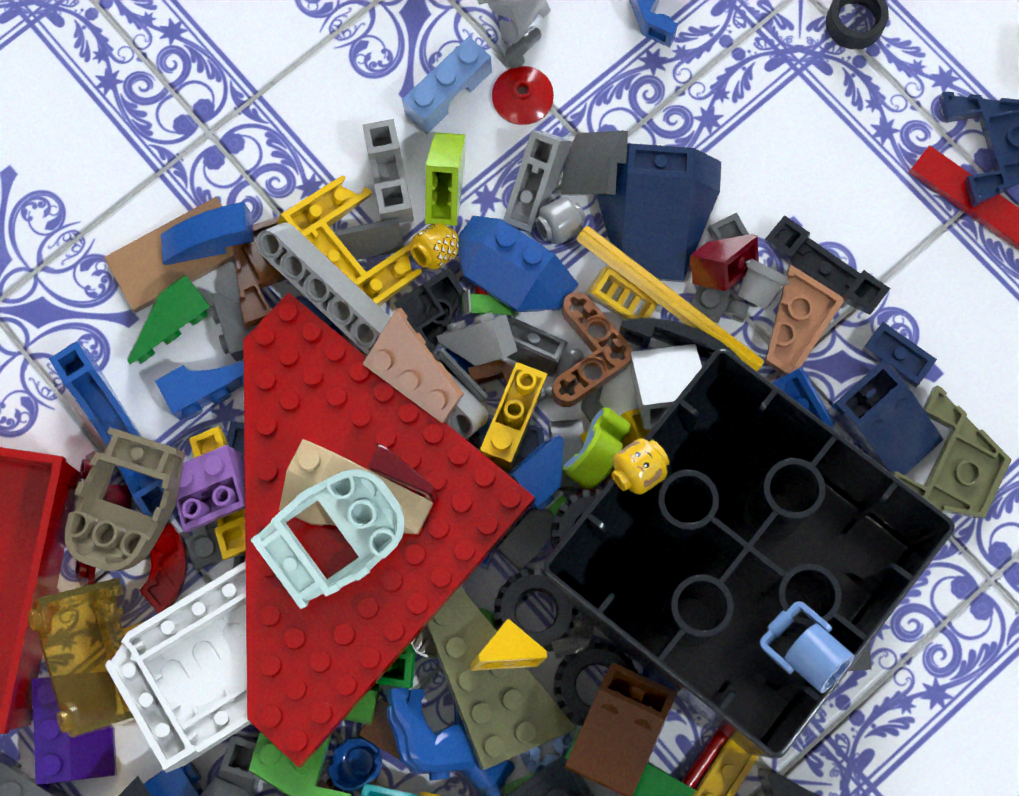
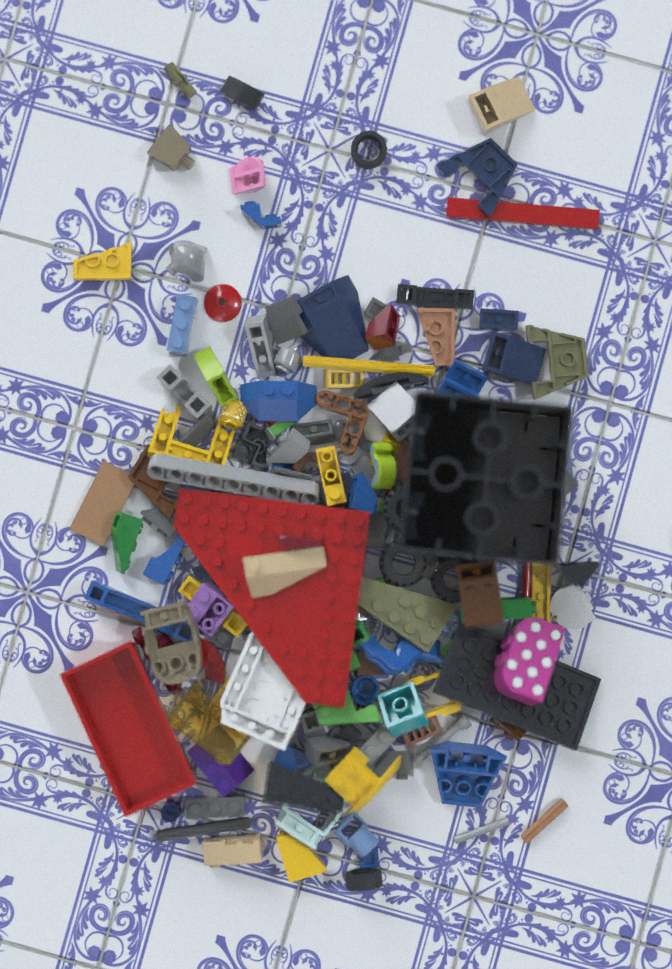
camera: 40 degrees left, 10 degrees up
(207, 234) = (116, 484): blue slope -> none
(362, 512) = (297, 575): light aqua slope -> none
(410, 368) = (268, 488): nougat wing -> none
(509, 649) = (403, 590): yellow slope -> none
(515, 52) = (206, 284): dark grey arm -> none
(640, 466) = (415, 474): yellow head -> none
(761, 284) = (408, 327): light grey piece -> none
(814, 654) = (546, 508): medium blue piece -> none

